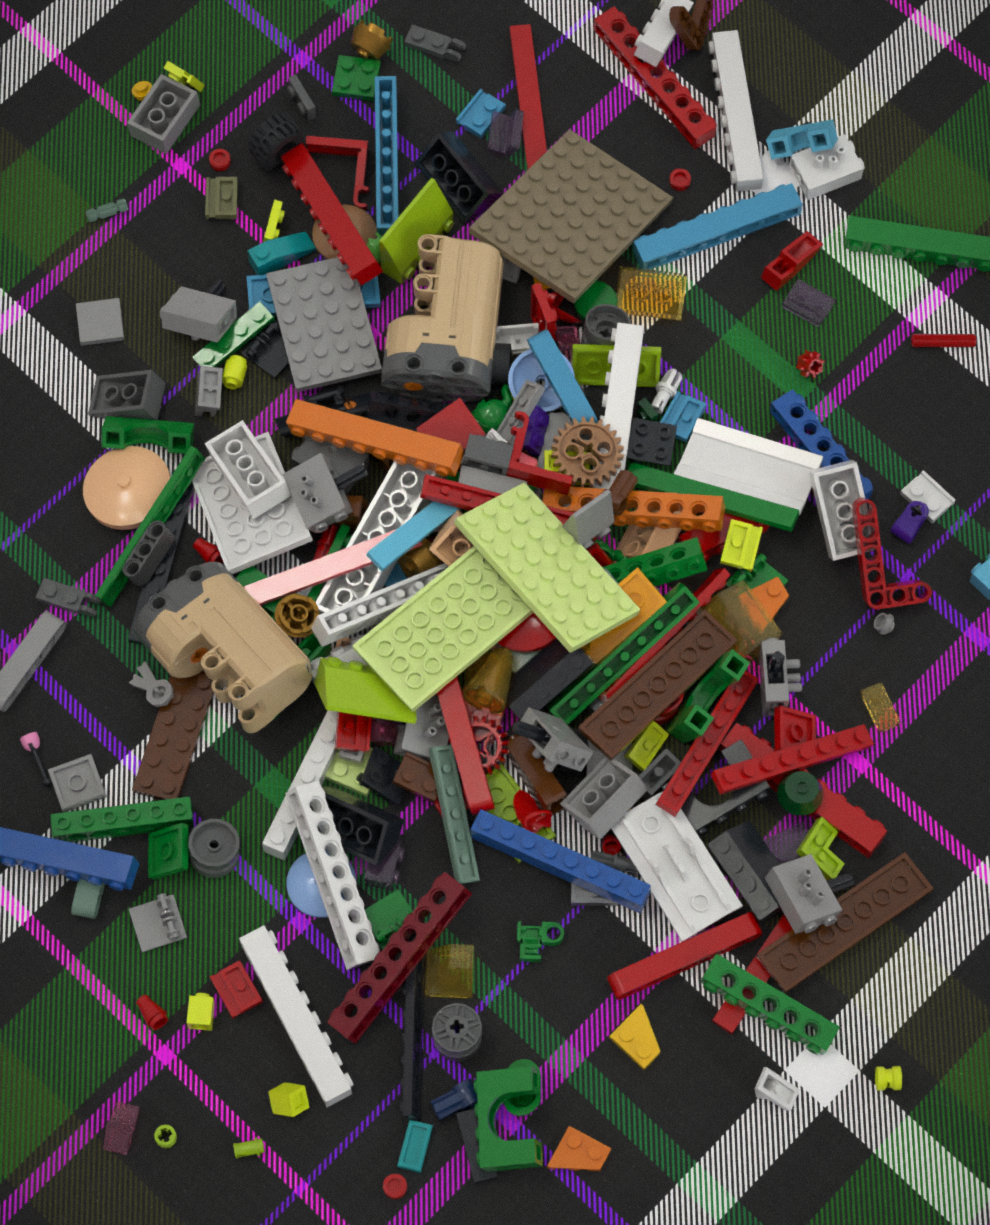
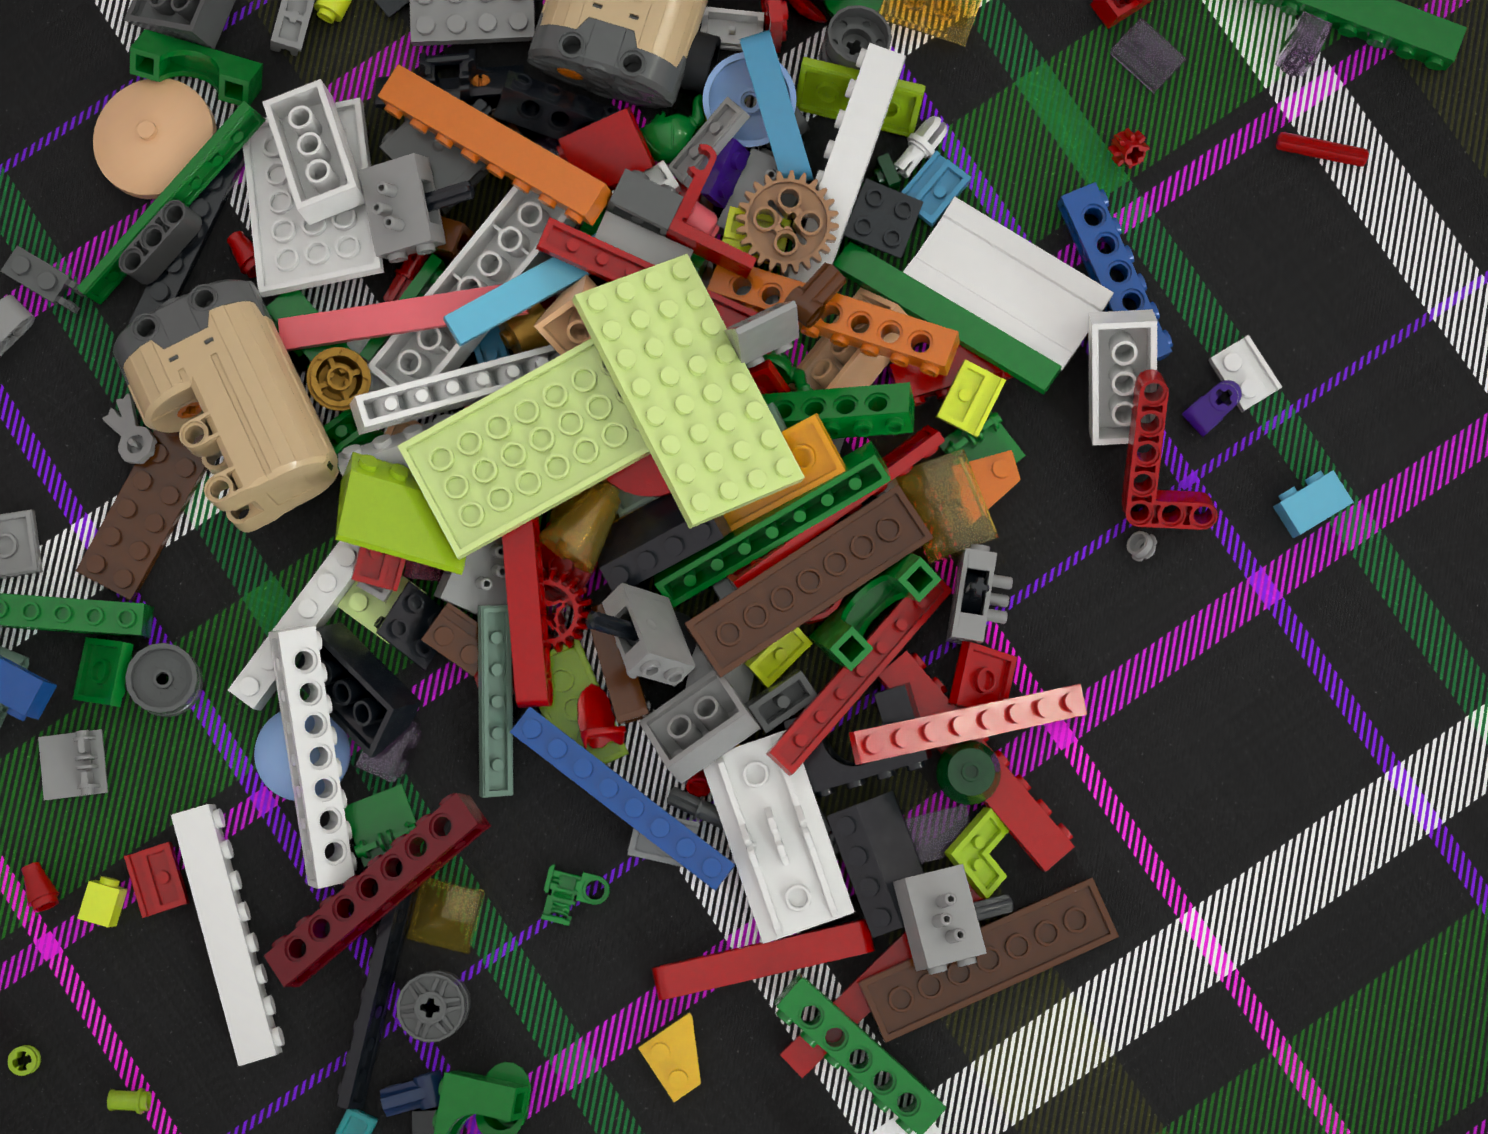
camera: 10 degrees right, 15 degrees up
(288, 1099) = (194, 1046): neon yellow panel -> none
(565, 338) = (800, 43): clear pink slope -> none
(880, 707) = (1108, 663): clear yellow plate -> none
(912, 273) = (1303, 44): none -> clear purple brick

